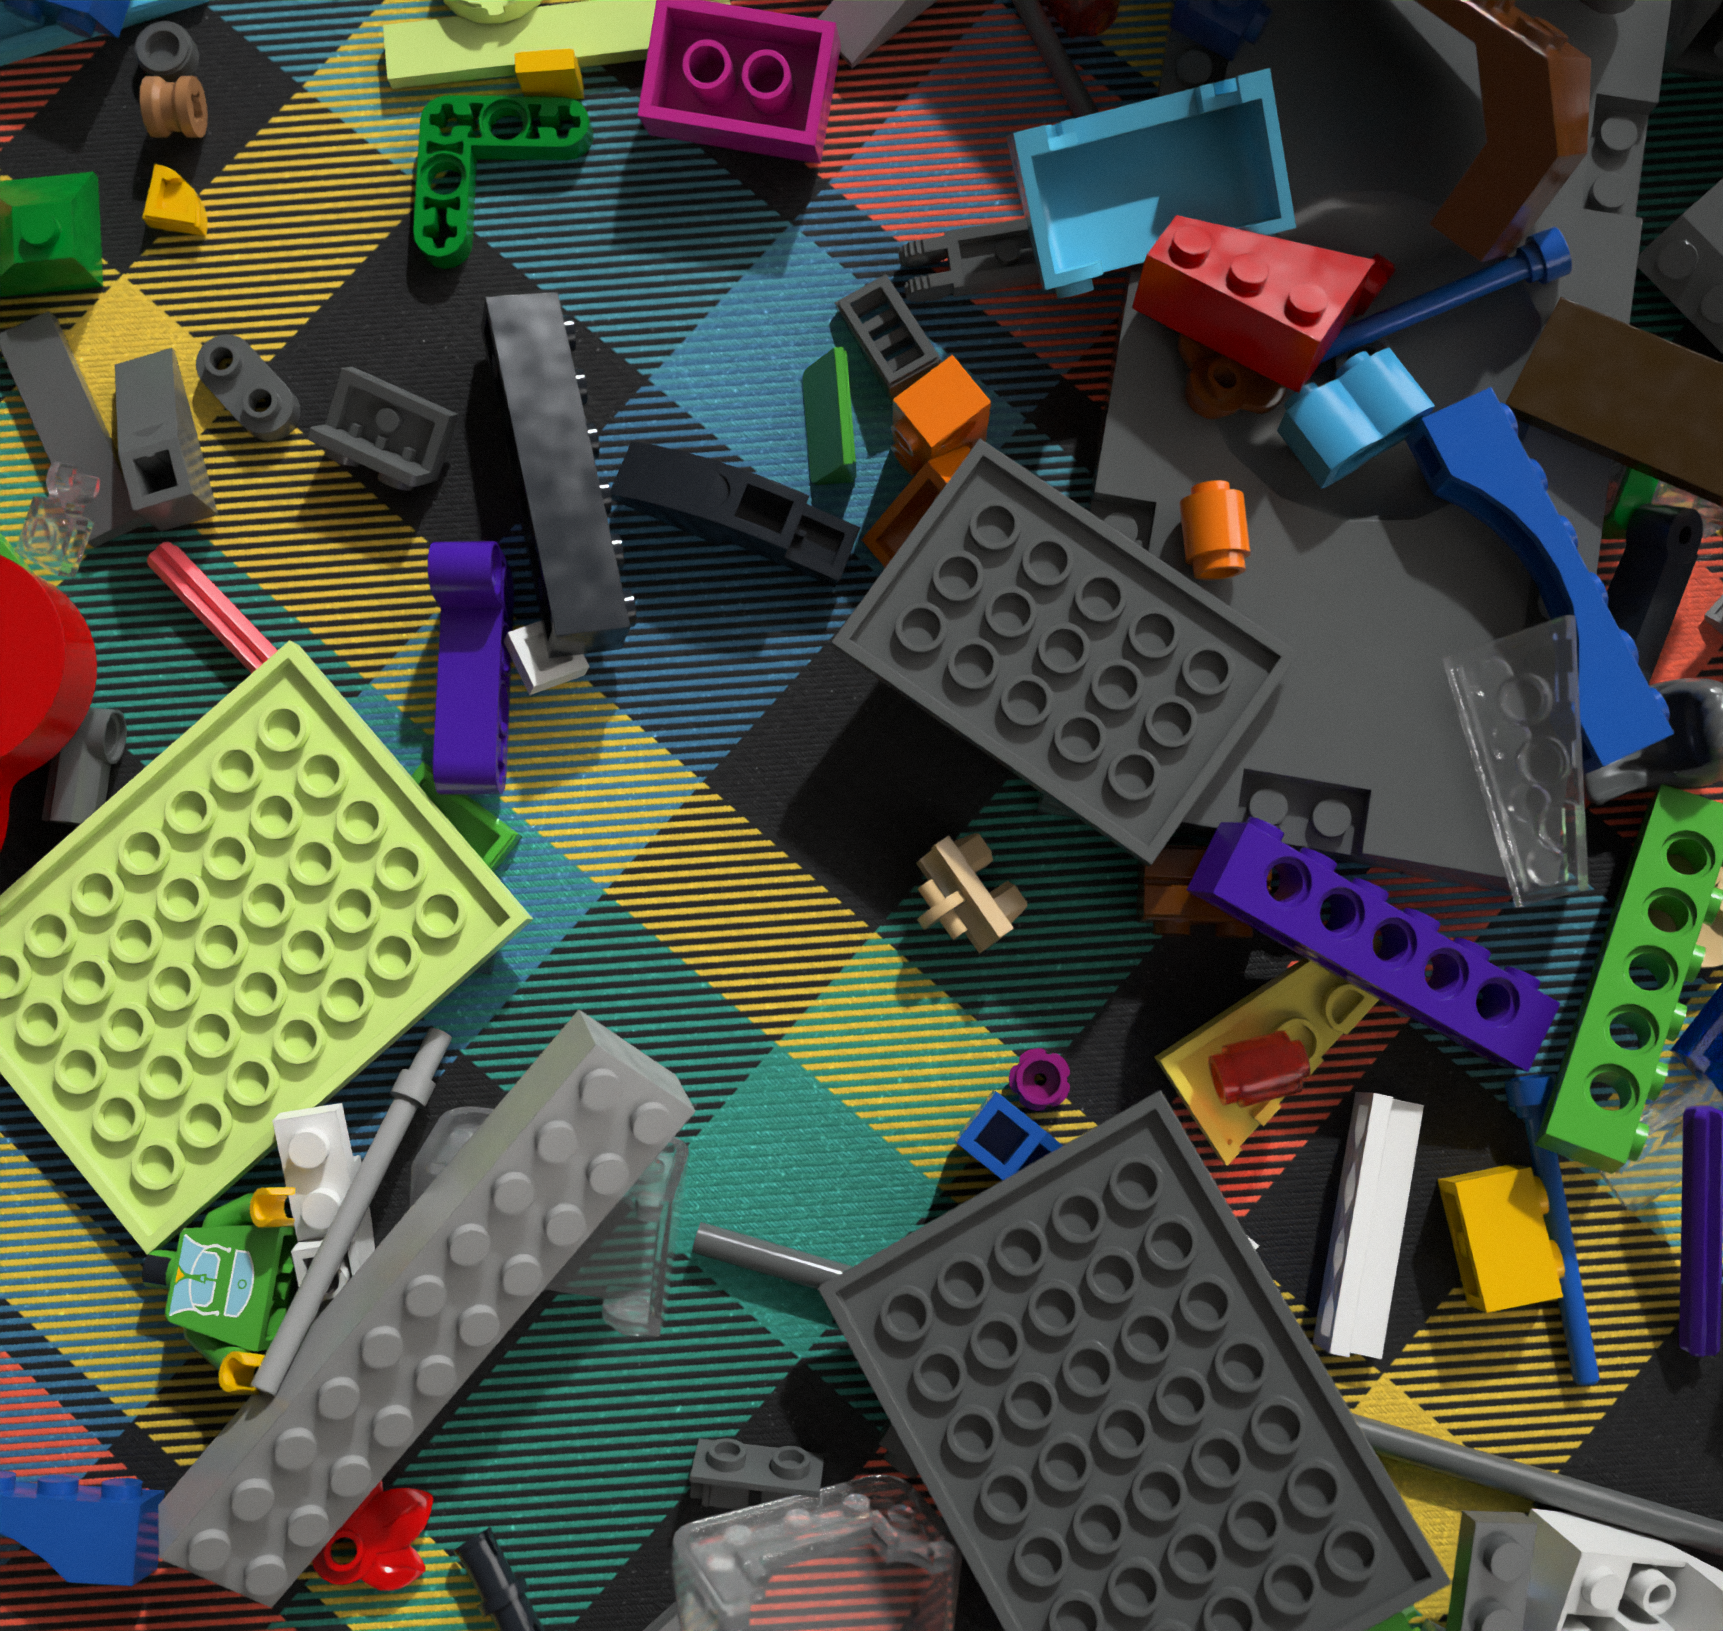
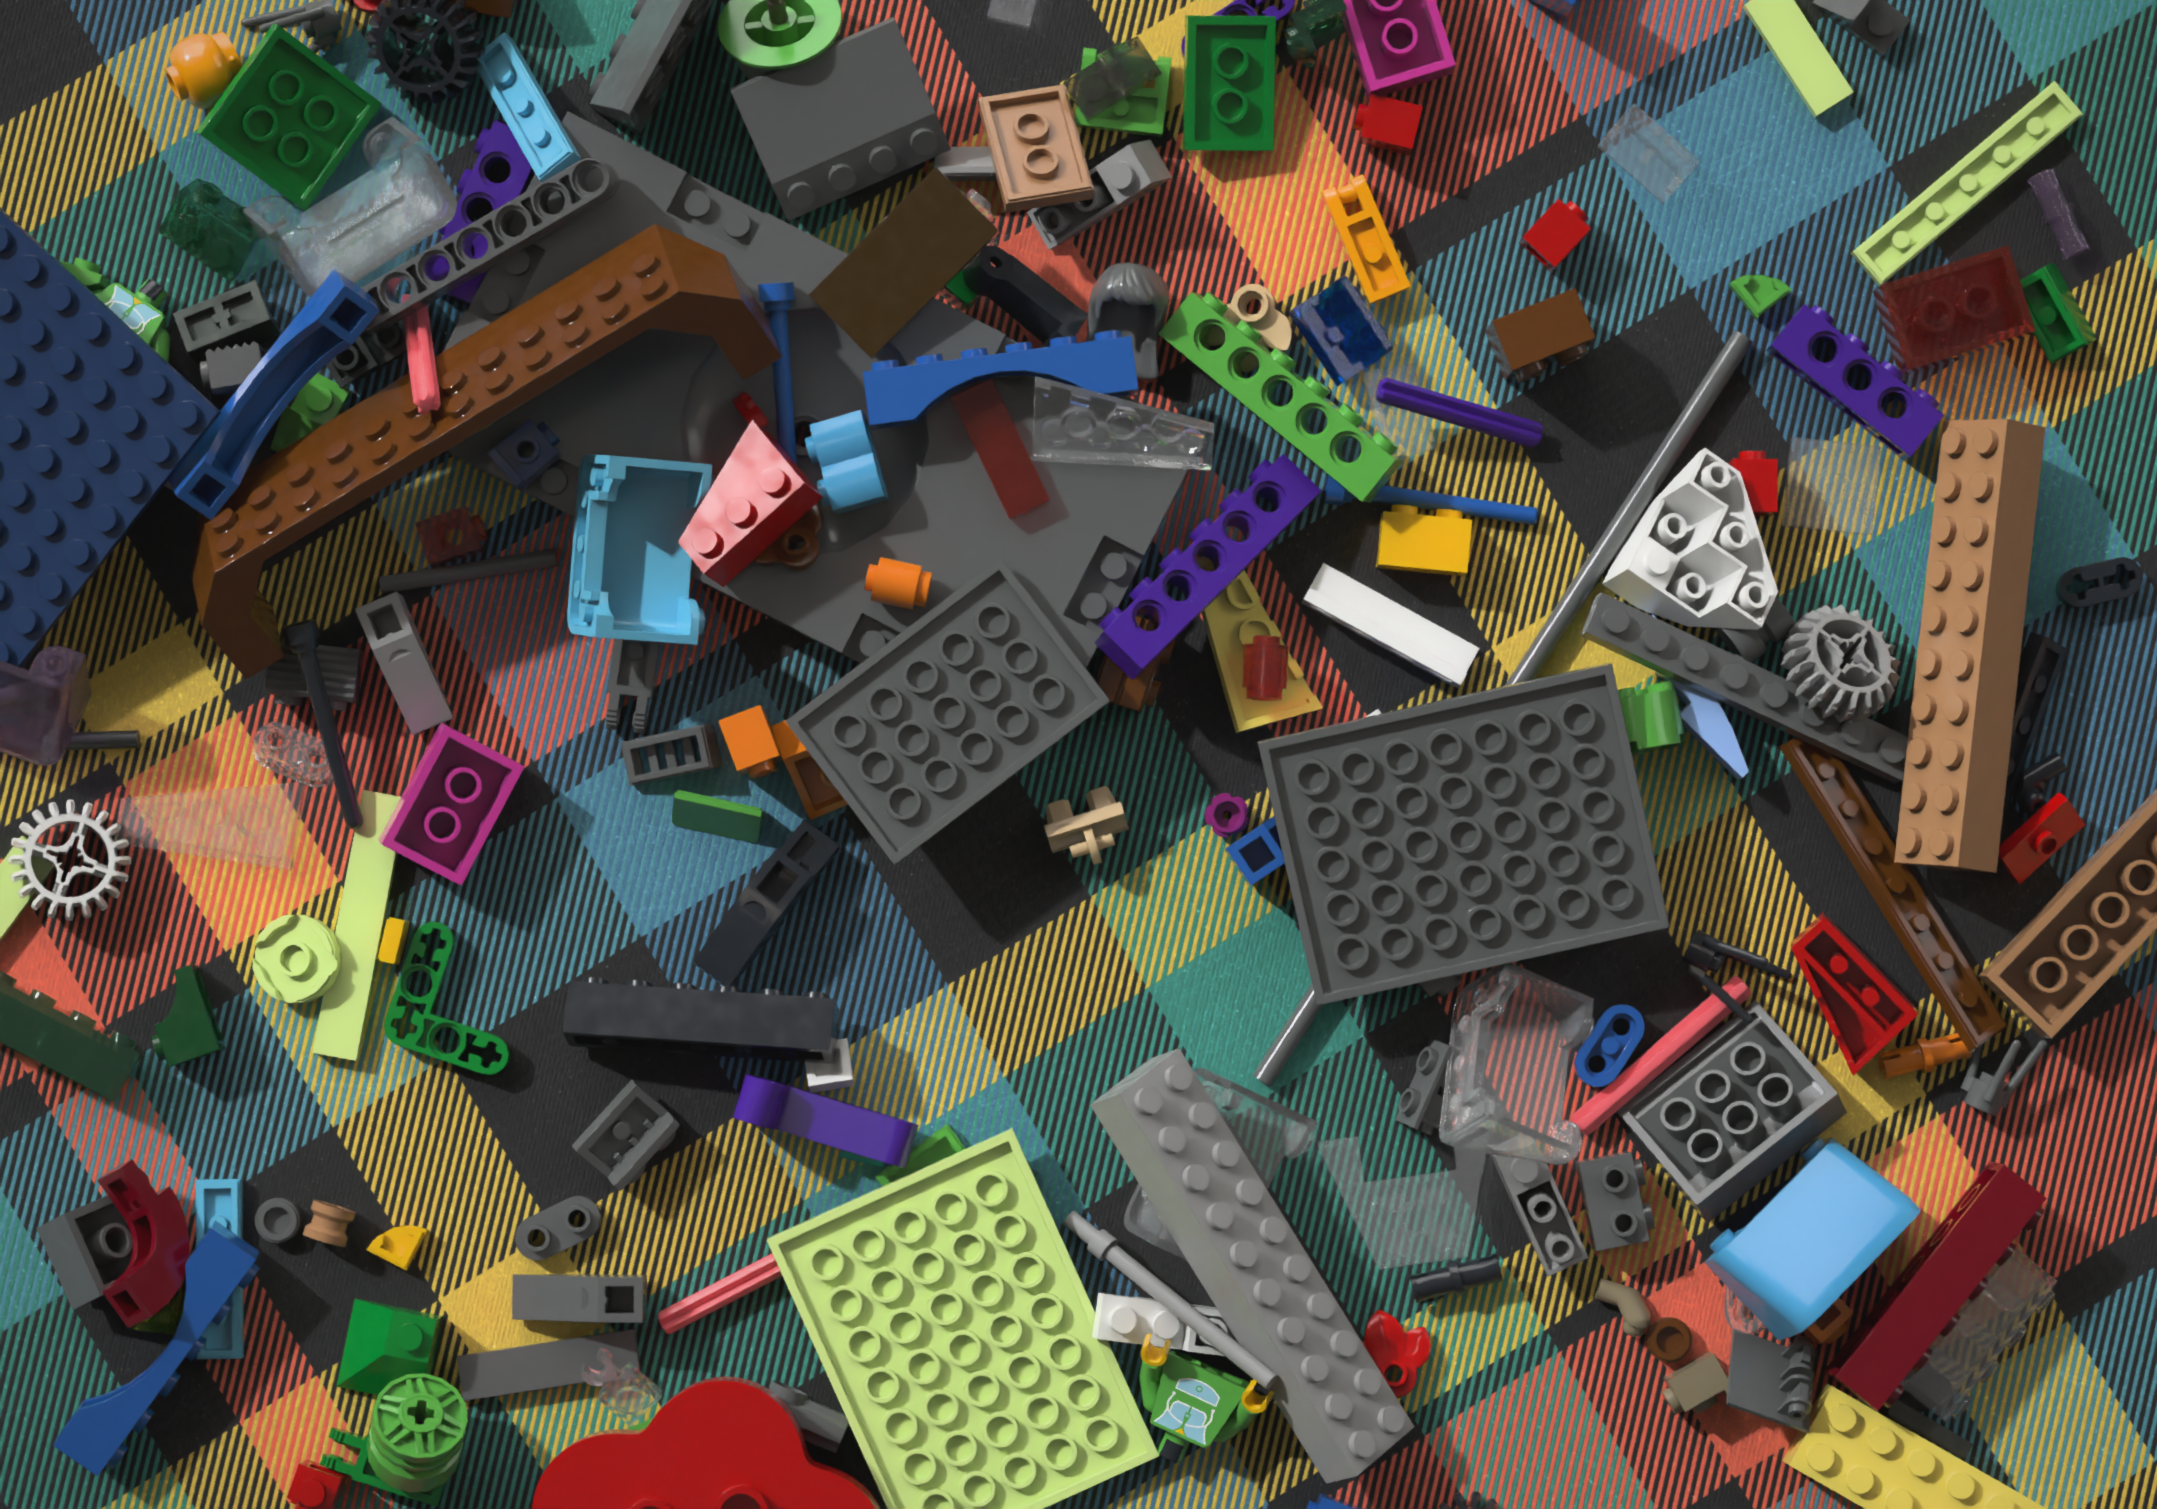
camera: 80 degrees left, 5 degrees up
(570, 1503) = (1408, 1216): none -> clear wing
(1442, 613) = (1000, 449): none -> clear red tile

